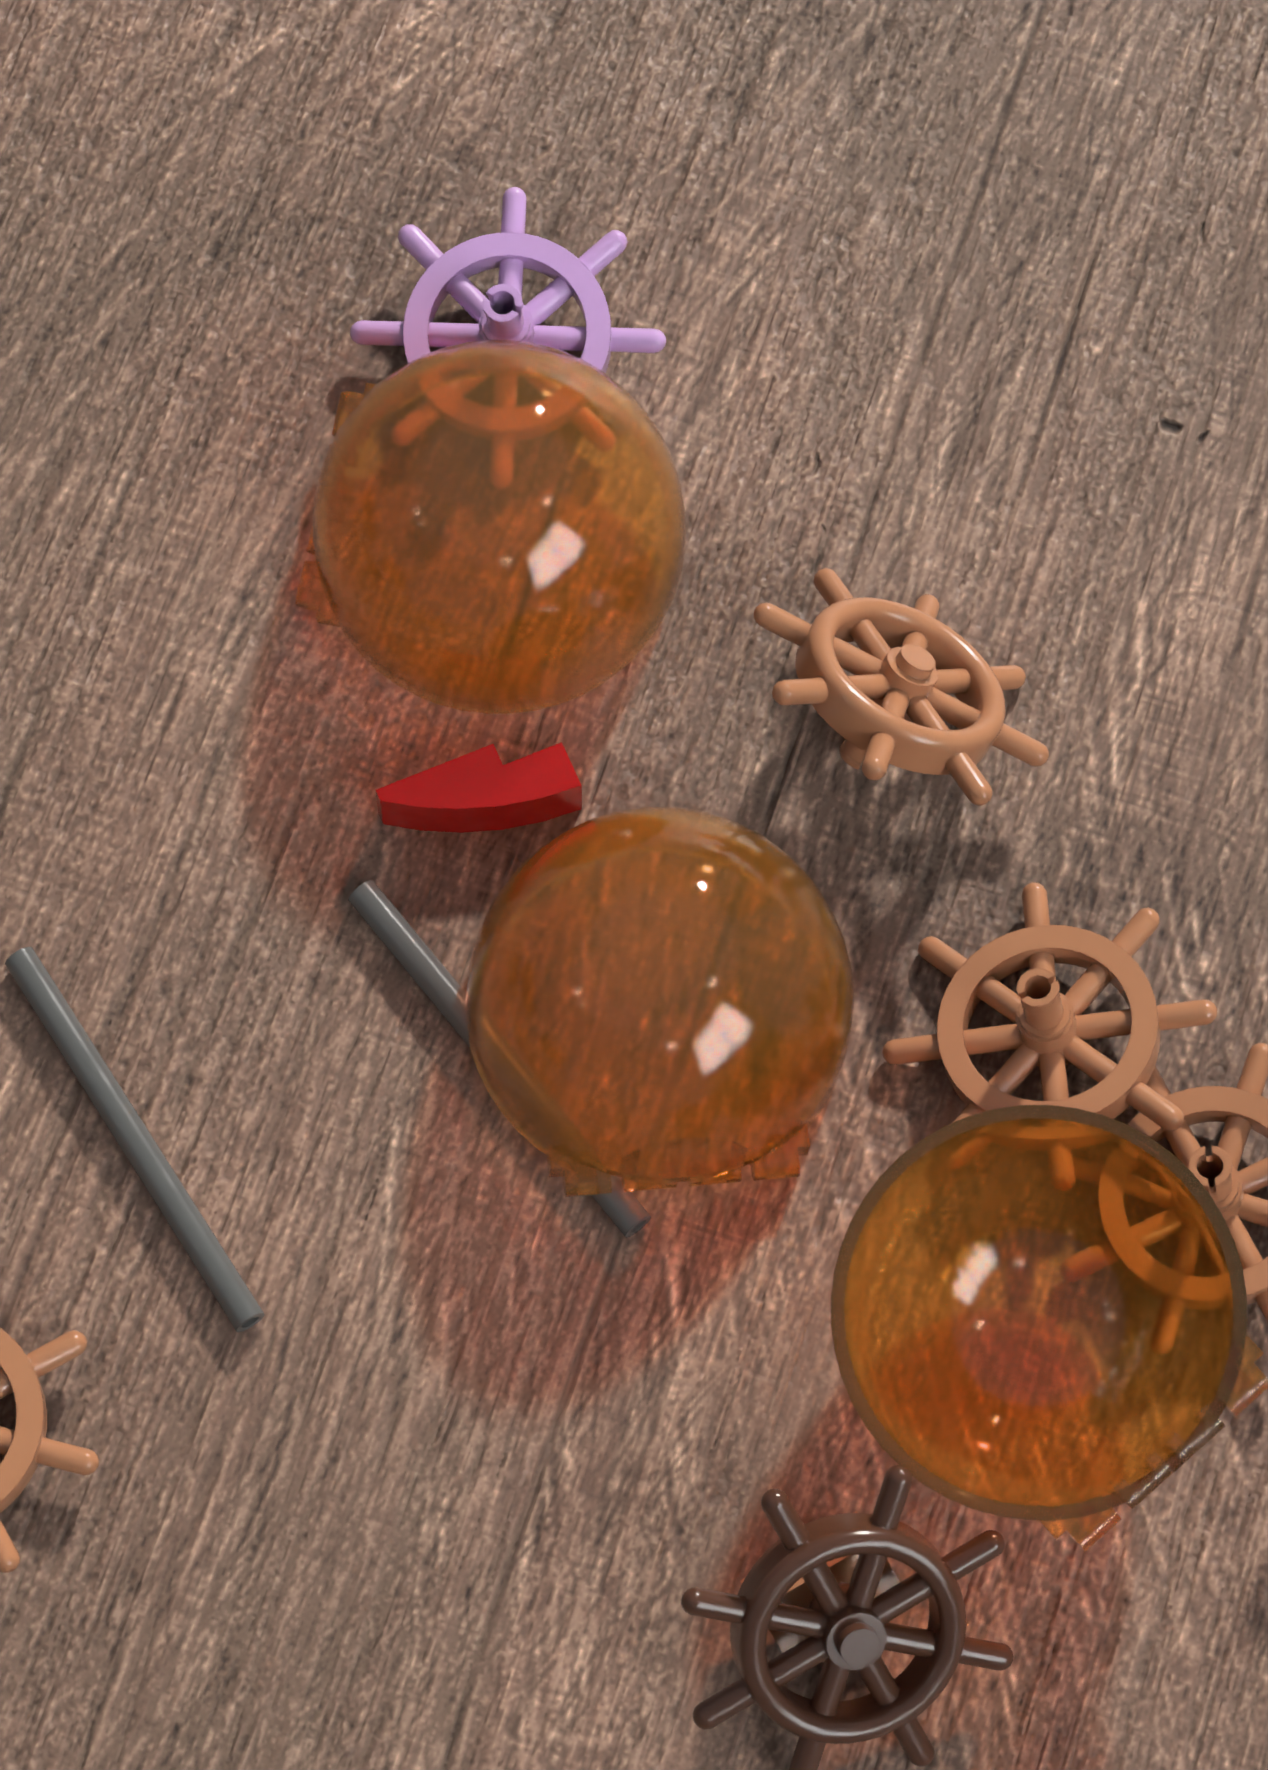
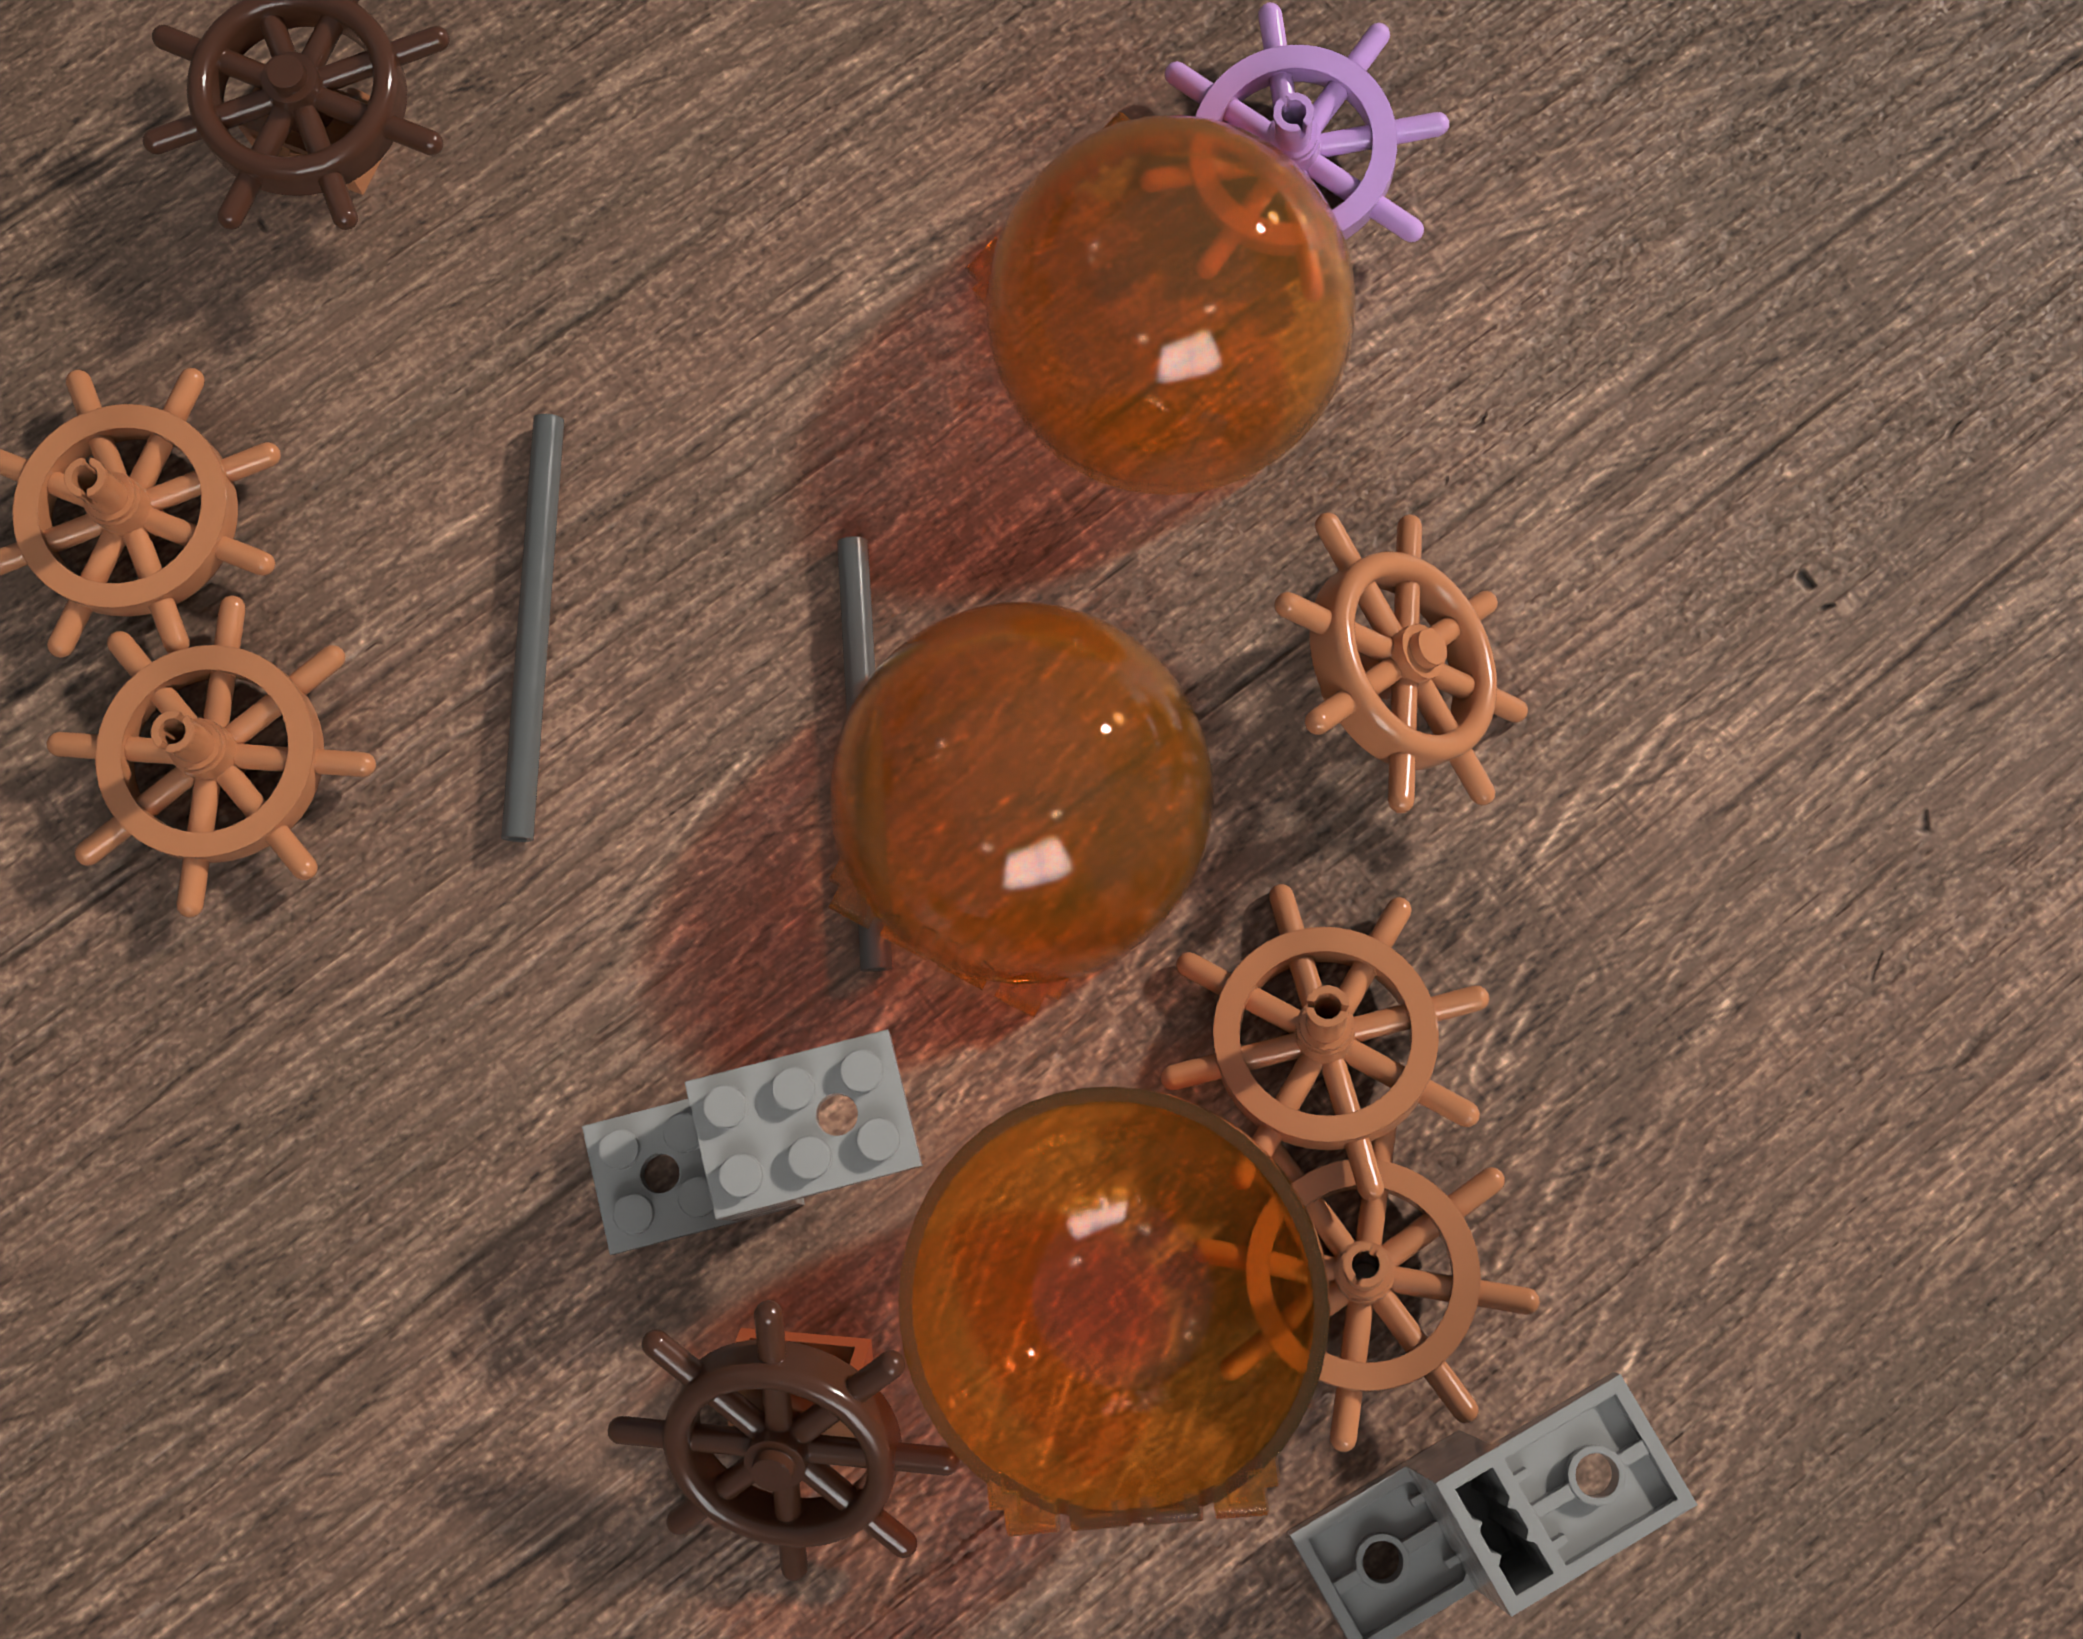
camera: 35 degrees right, 10 degrees up
(483, 793) = (1003, 525): red slope -> none
(645, 1417) = (752, 1142): none -> light grey bracket

